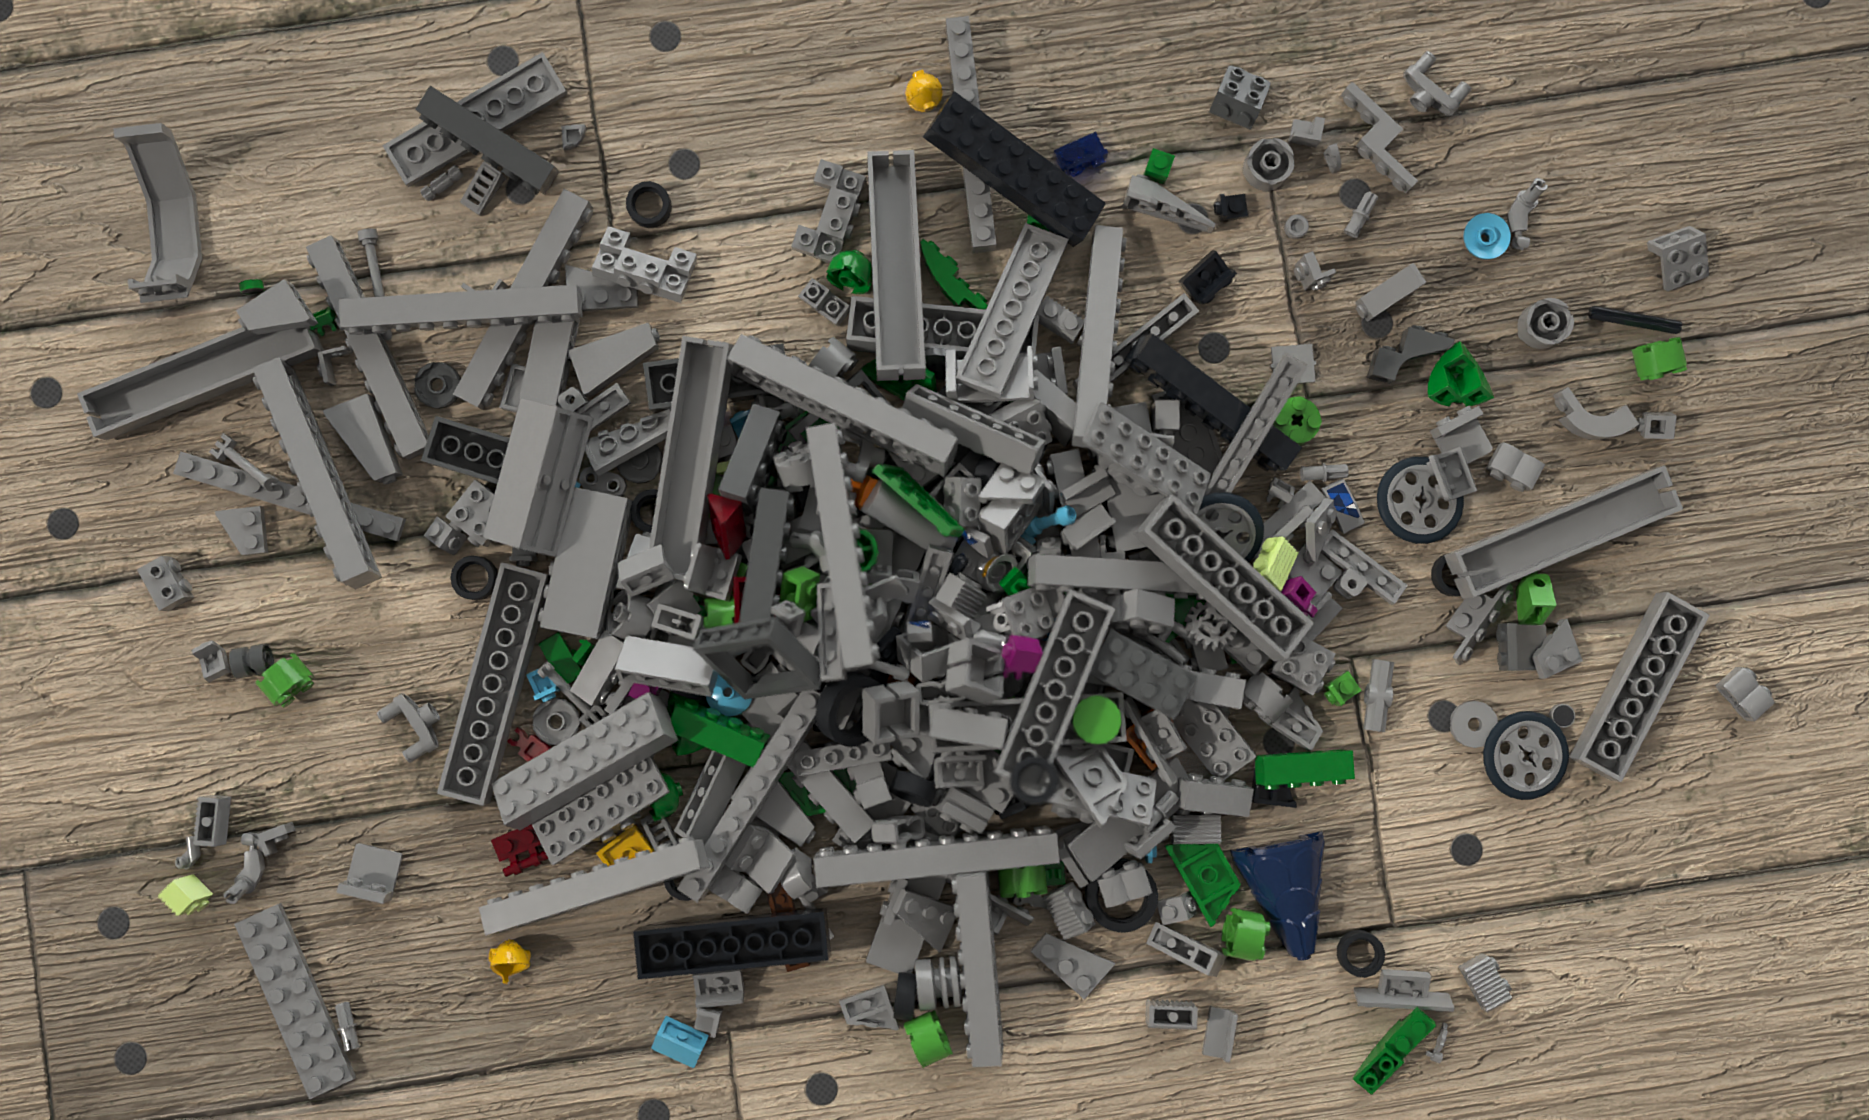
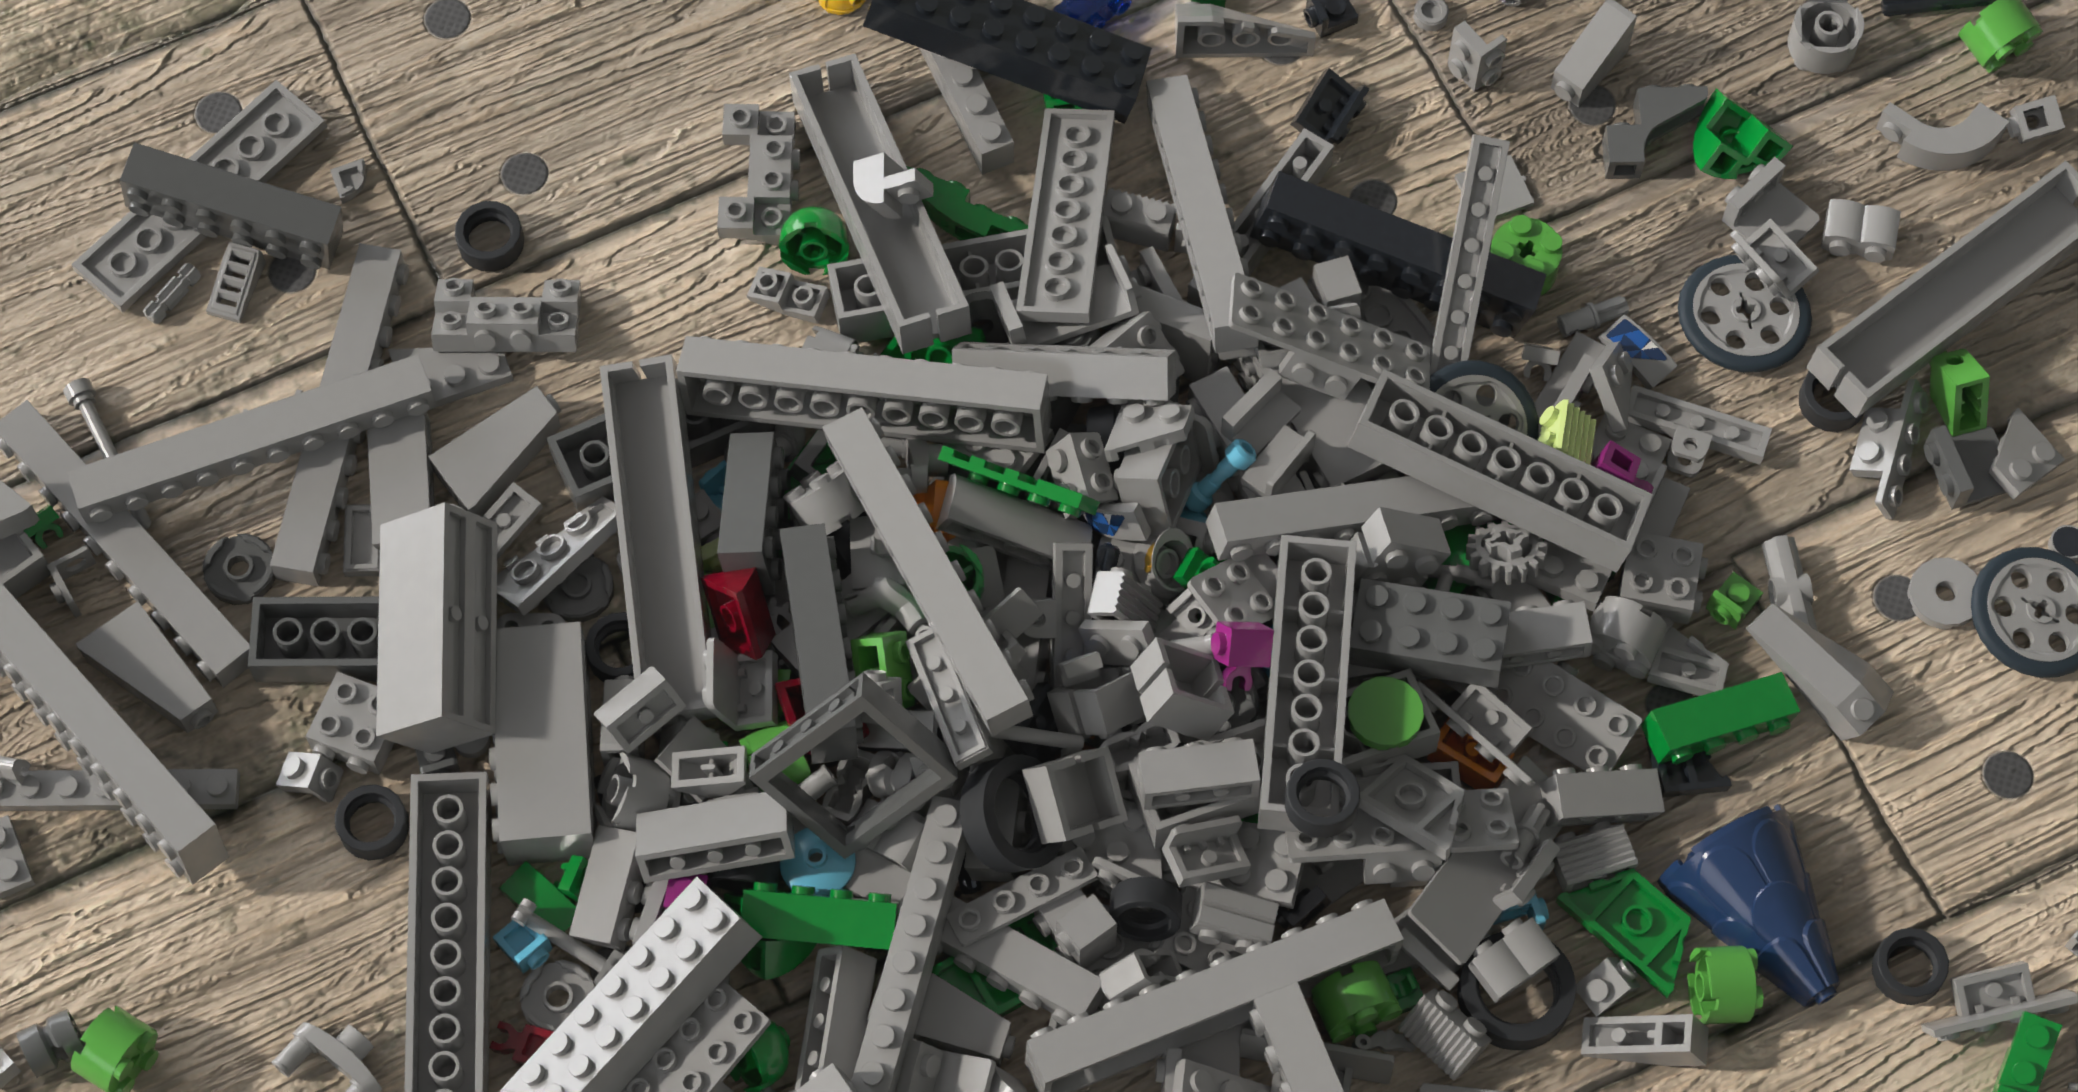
camera: 15 degrees left, 20 degrees down
(898, 261) = (887, 187): none -> light grey brick
(1382, 760) = (1831, 678): none -> light grey wedge

